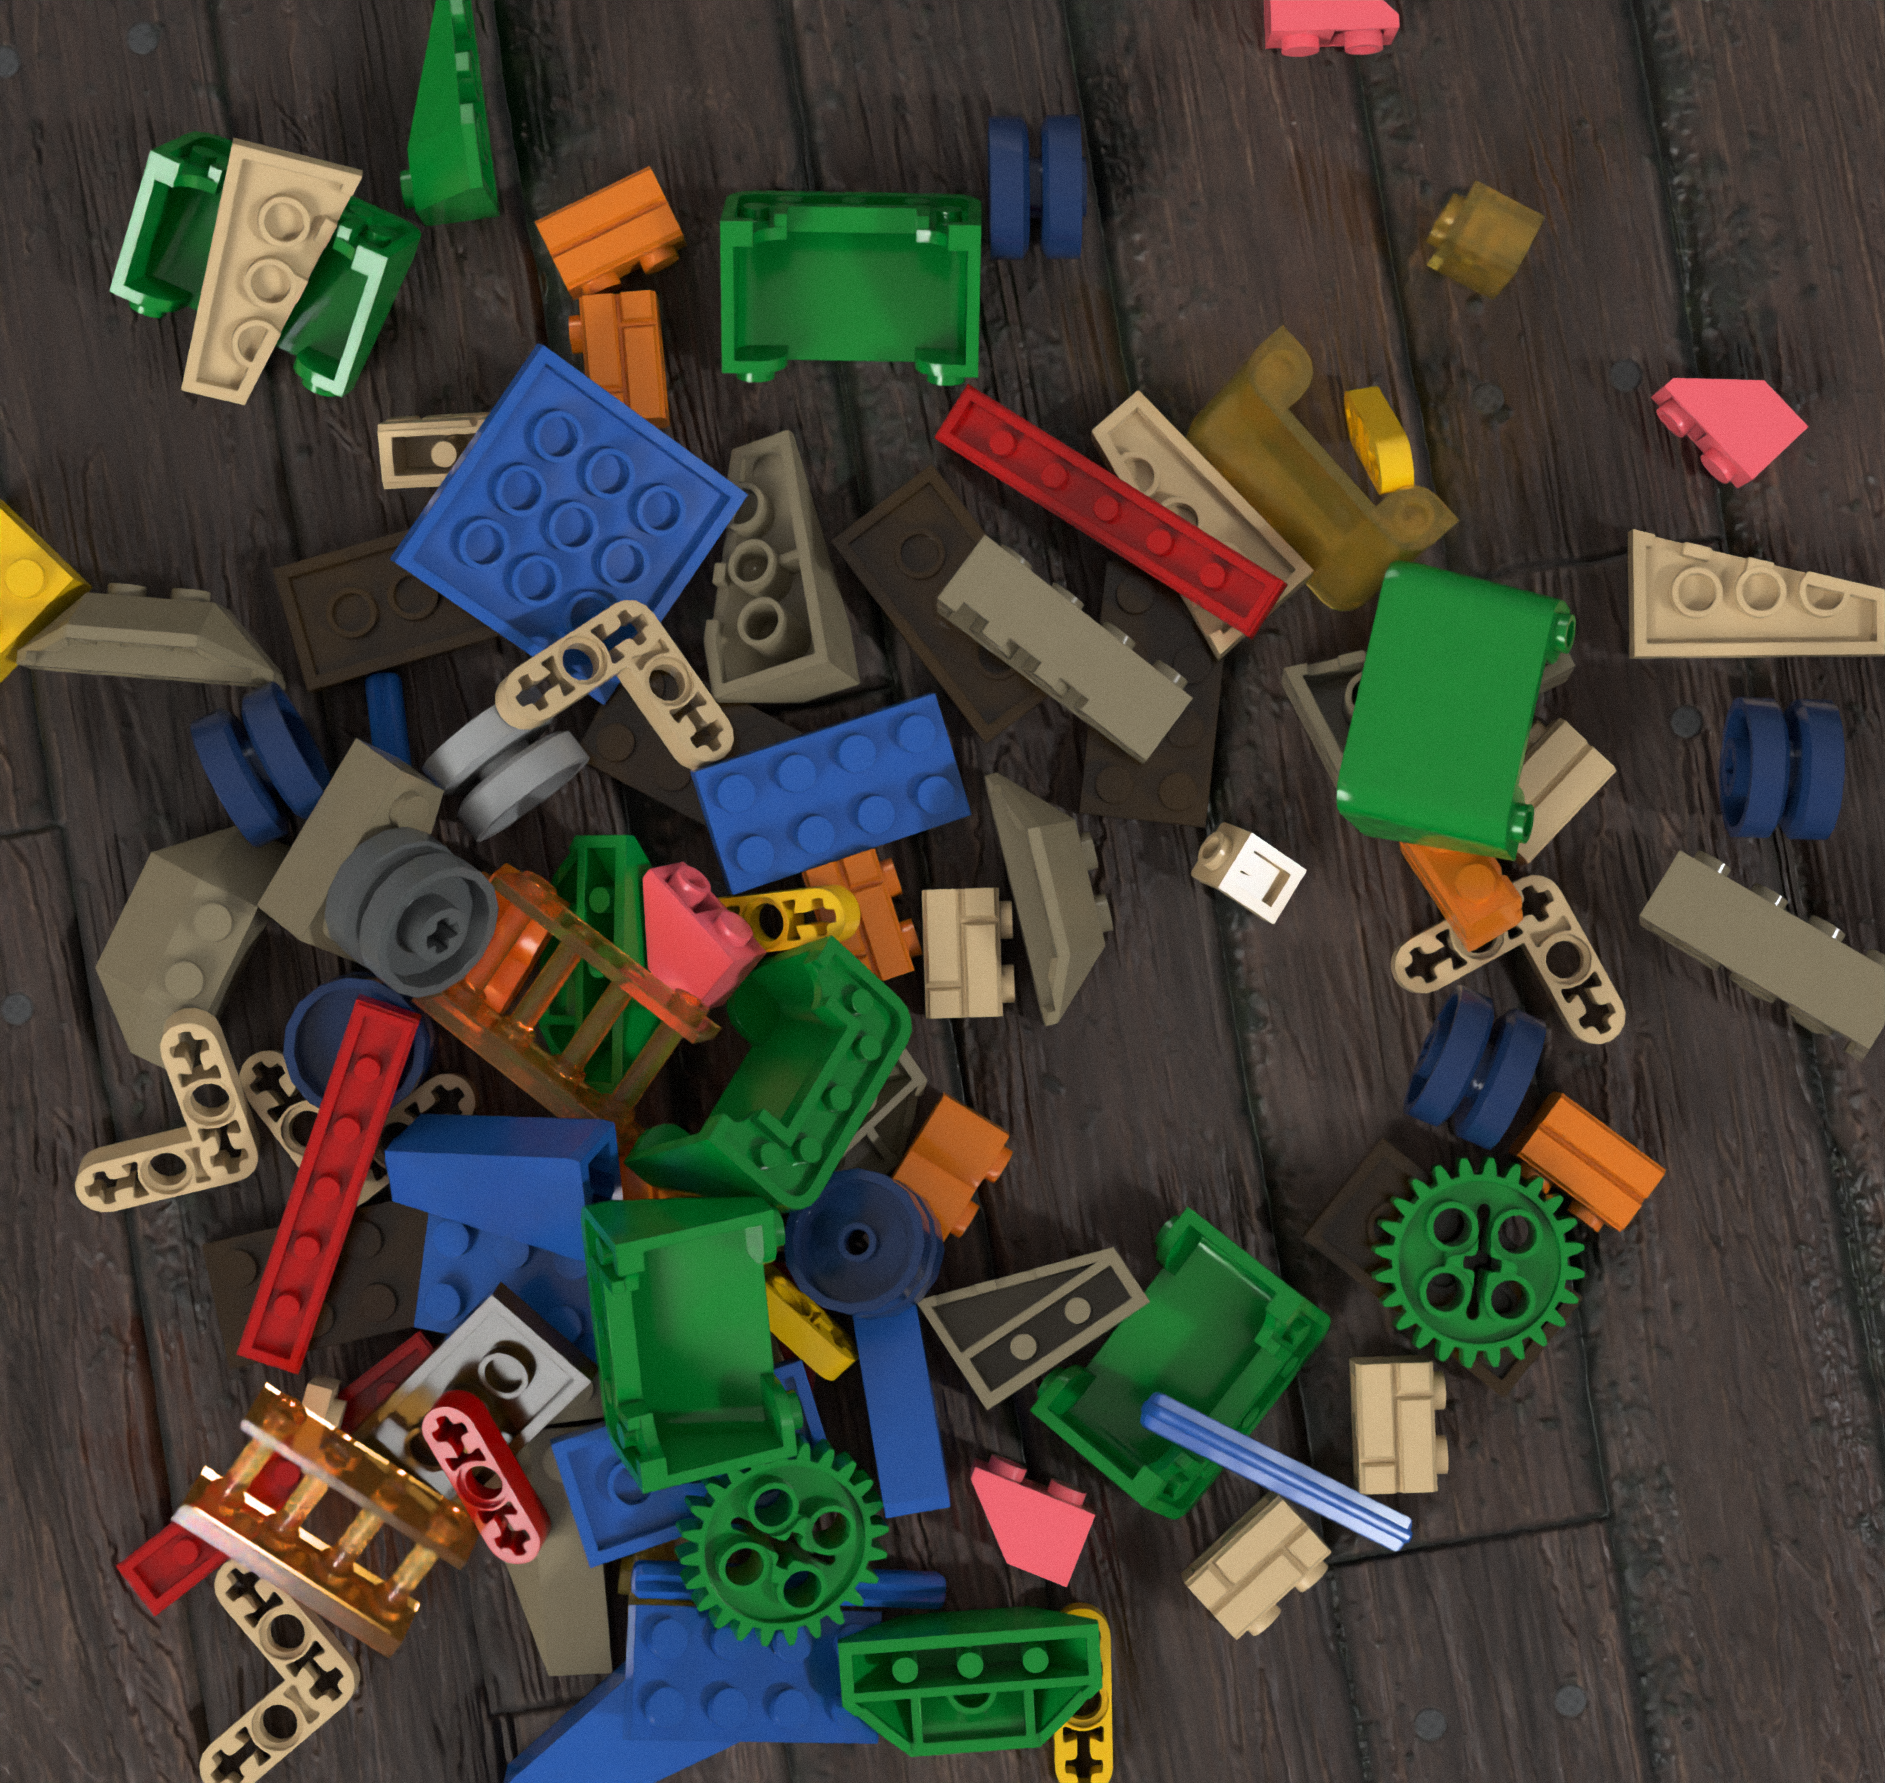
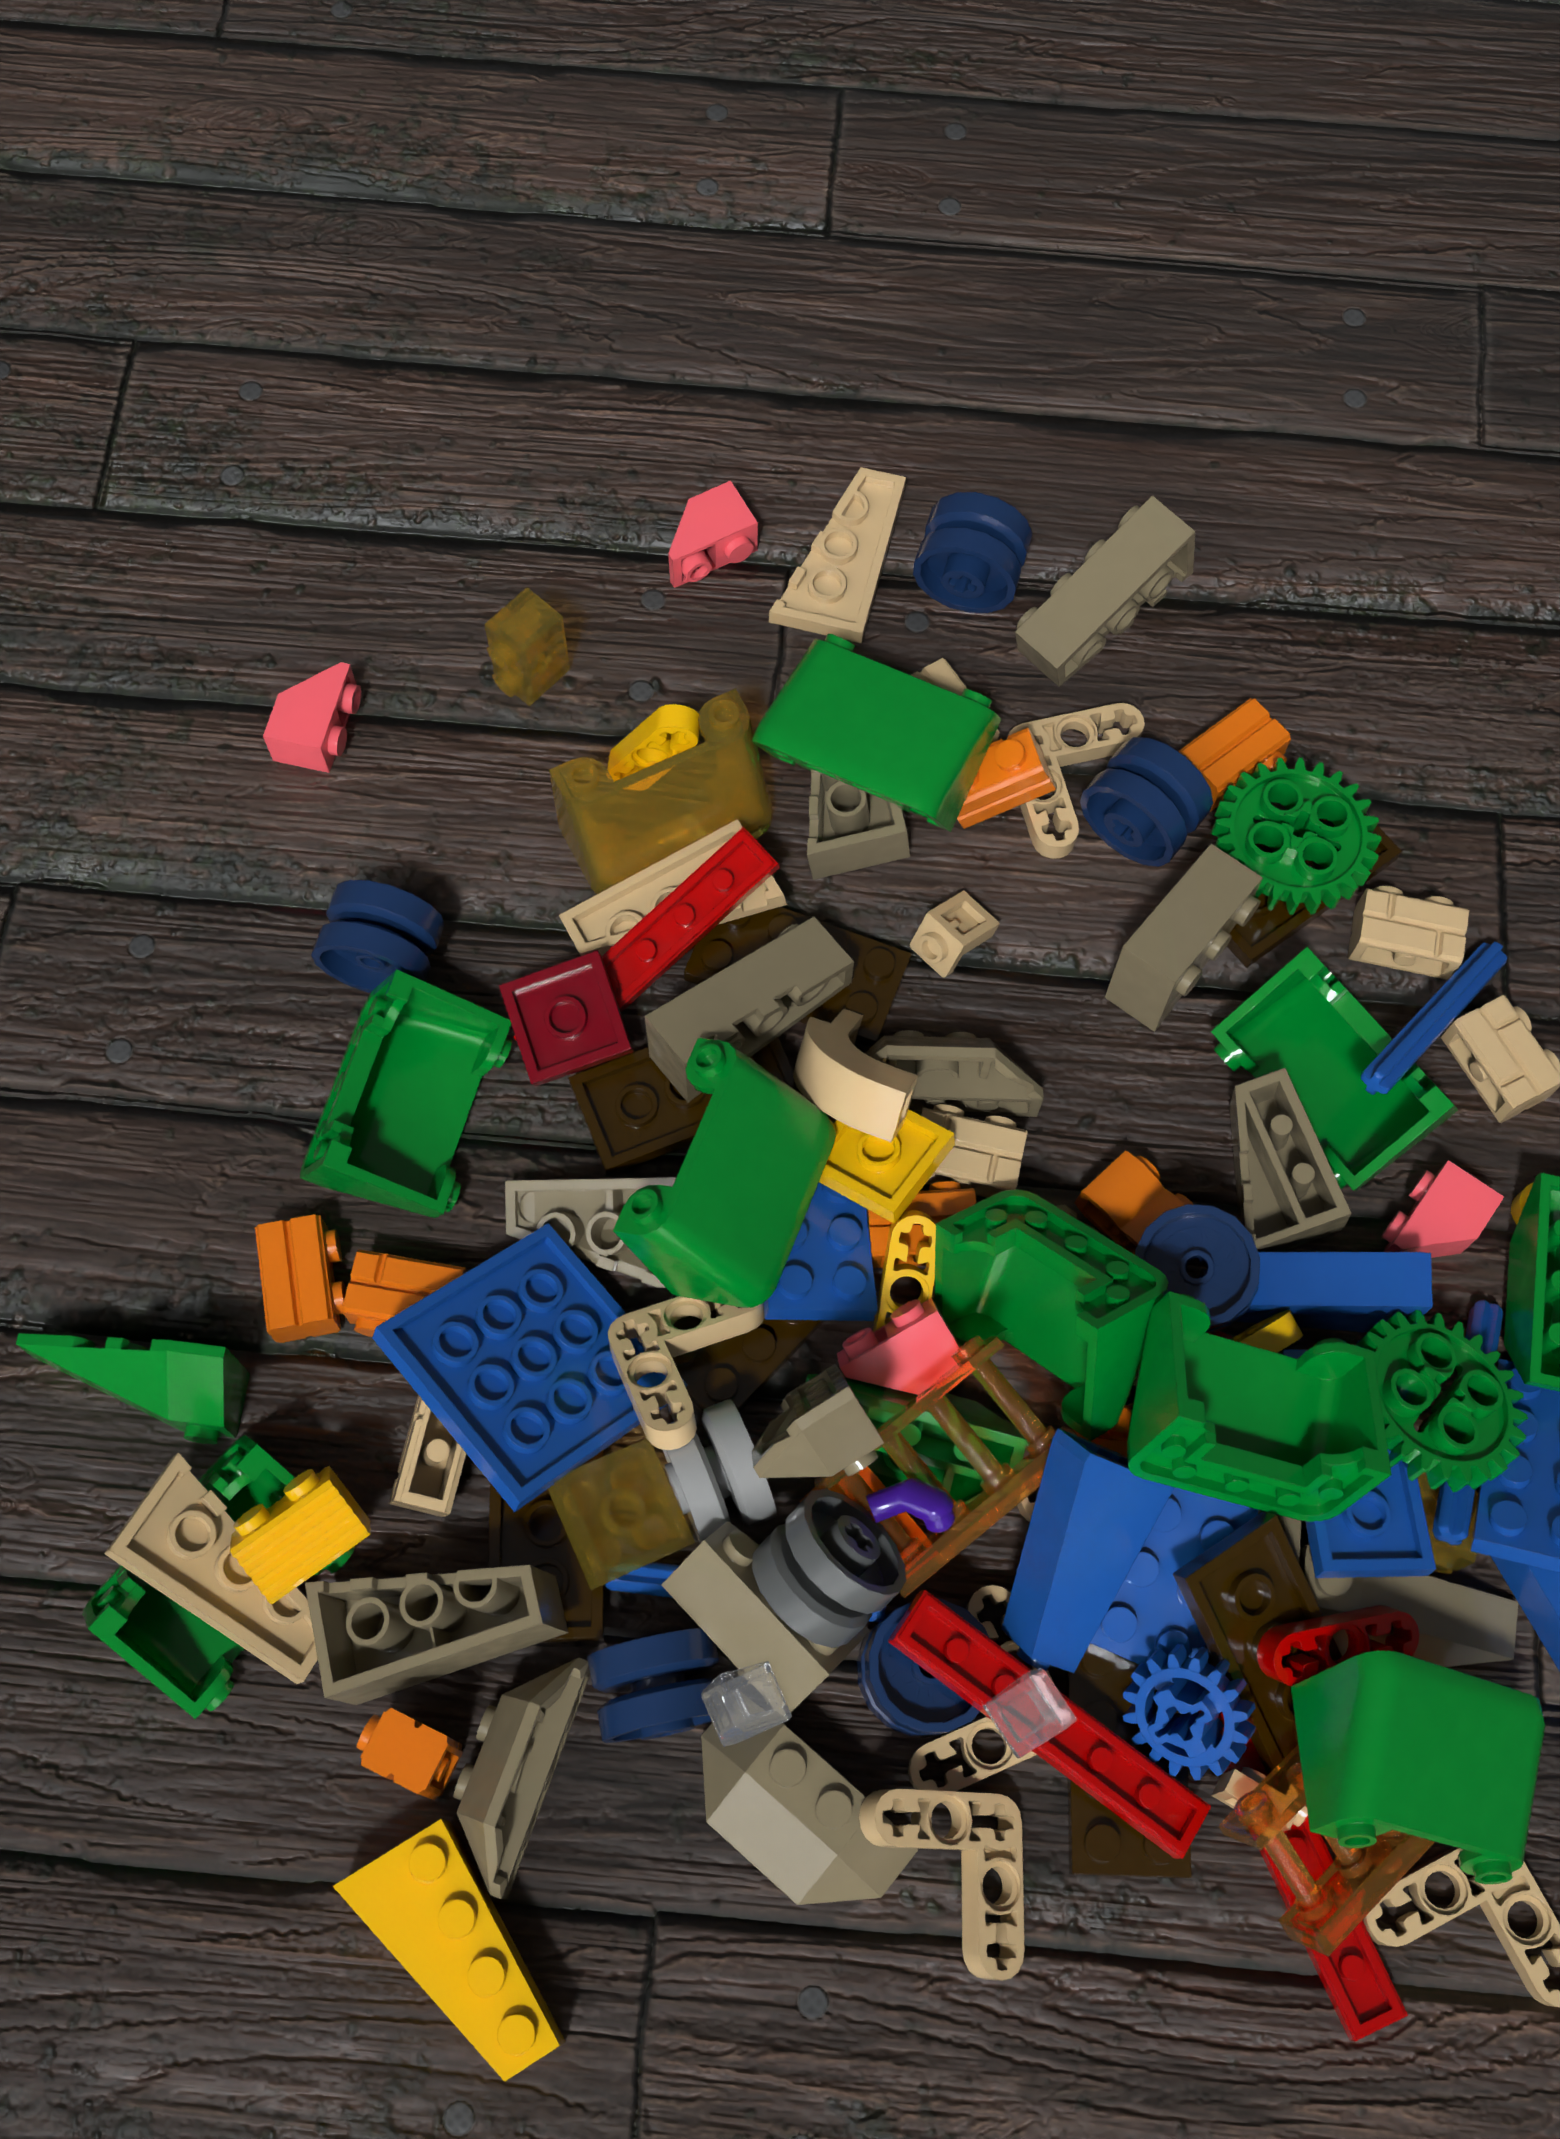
camera: 75 degrees left, 20 degrees down
(130, 525) = (409, 1753): none -> orange brick
(257, 859) = (745, 1703): none -> clear slope
(258, 487) = (422, 1626): none -> dark tan wedge
(311, 335) = (298, 1533): none -> yellow brick
(321, 1159) = (1029, 1712): none -> clear slope
(375, 1580) = (1420, 1755): none -> green windscreen
(377, 1330) = (1189, 1736): none -> blue gear
(432, 670) = (620, 1513): none -> clear yellow plate
(511, 987) = (916, 1498): none -> dark purple arm
(540, 862) = (817, 1432): none -> dark tan wedge
(822, 702) = (739, 1189): none -> green windscreen
(915, 850) = (886, 1173): none -> yellow plate
(979, 786) = (850, 1083): none -> tan arch
(994, 440) = (566, 1018): none -> dark red plate
(1303, 1152) = (1182, 936): none -> dark tan wedge

